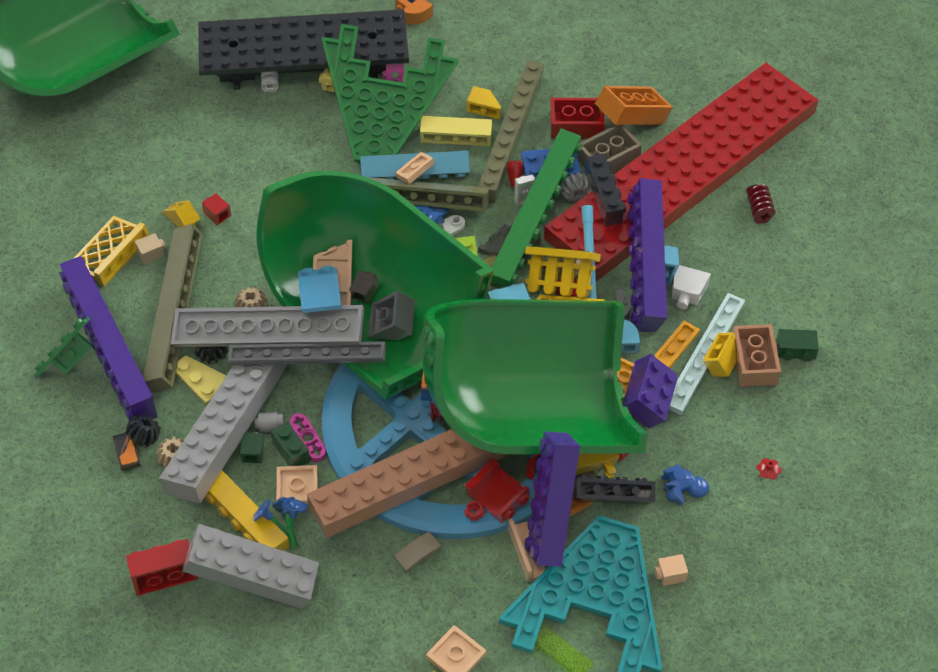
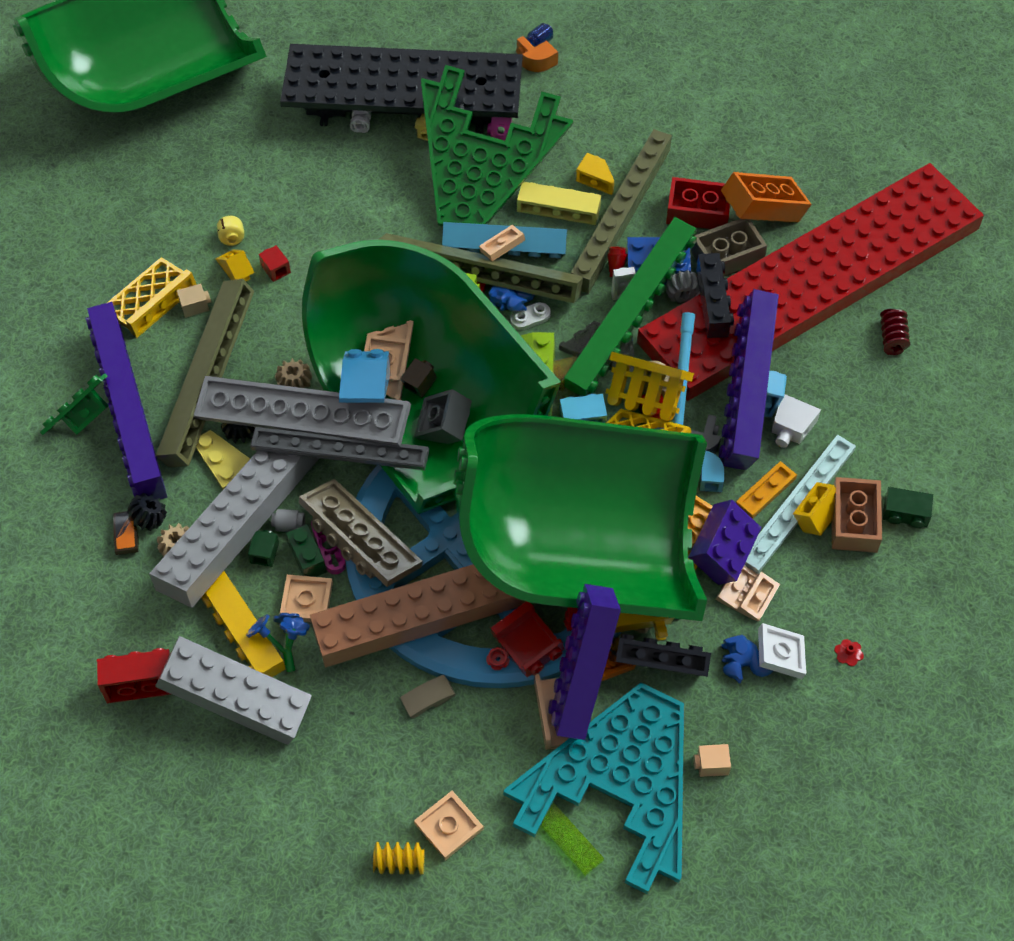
camera: 10 degrees right, 5 degrees up
(170, 185) = (230, 228): none -> light yellow head
(335, 423) = (358, 534): none -> dark tan plate
(676, 432) = (749, 594): none -> light nougat slope
(713, 473) = (781, 651): none -> white plate

